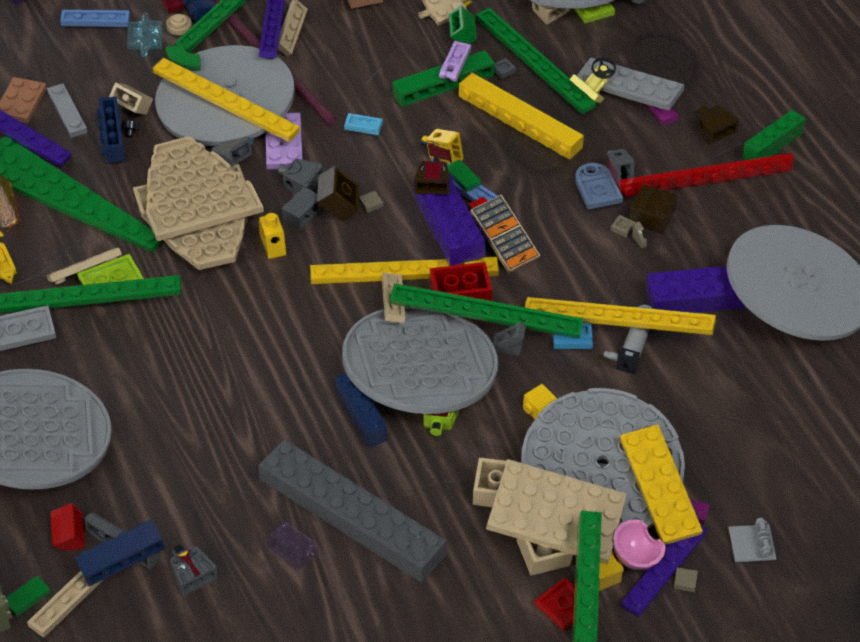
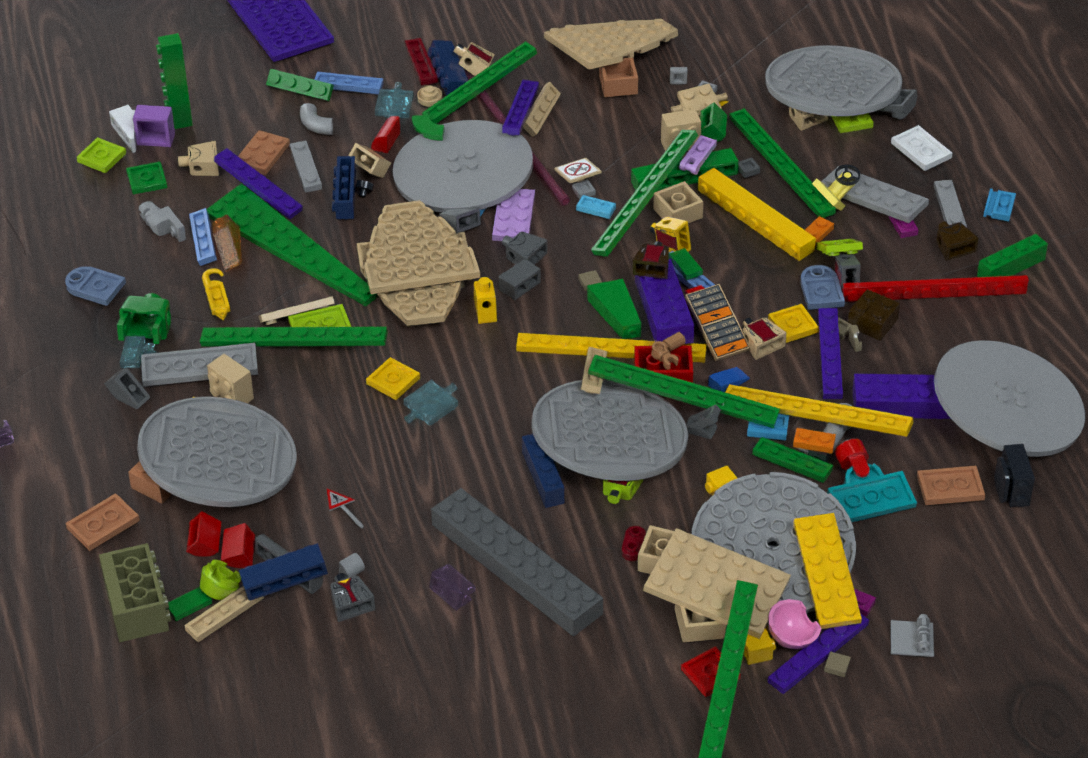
camera: 10 degrees right, 5 degrees down
(30, 349) = (230, 379): none -> tan brick
(30, 520) = (203, 535): none -> red brick
(47, 25) = (299, 85): none -> green plate
(55, 569) = (218, 580): none -> lime cone
(68, 63) = (313, 122): none -> light grey cylinder
(143, 69) = (387, 135): none -> red brick
(161, 465) = (338, 500): none -> piece
(187, 535) = (351, 565): none -> light grey brick
(194, 327) = (393, 378): none -> yellow plate
(226, 99) = (463, 170): yellow plate -> none
(235, 349) = (430, 402): none -> clear light blue plate
(338, 193) = (557, 267): dark brown brick -> none
(339, 88) = (577, 170): none -> piece
(347, 106) = (583, 188): none -> light grey tile
(402, 228) = (616, 307): none -> green slope
(409, 106) = (644, 193): none -> green plate
(433, 37) = (674, 122): none -> tan brick
(444, 113) = (679, 203): none -> tan brick
(458, 269) = (662, 350): none -> medium nougat bar
(463, 473) = (632, 542): none -> dark red plate
(518, 294) = (721, 380): none -> blue slope
(551, 243) = (763, 336): none -> tan torso
(577, 225) = (795, 322): none -> yellow plate
(584, 124) = (820, 228): none -> orange plate
(602, 369) = (792, 459): none -> green plate
(609, 141) = (834, 247): none -> lime plate
(618, 253) = (830, 353): none -> dark purple plate
(622, 348) = (814, 440): none -> orange plate
(665, 31) = (921, 148): none -> white plate
(680, 392) = (866, 488): none -> teal plate
(702, 85) = (949, 202): none -> light grey plate
(750, 82) = (999, 205): none -> dark azure plate
(759, 378) = (950, 485): none -> nougat plate
(820, 363) = (1014, 476): none -> black brick

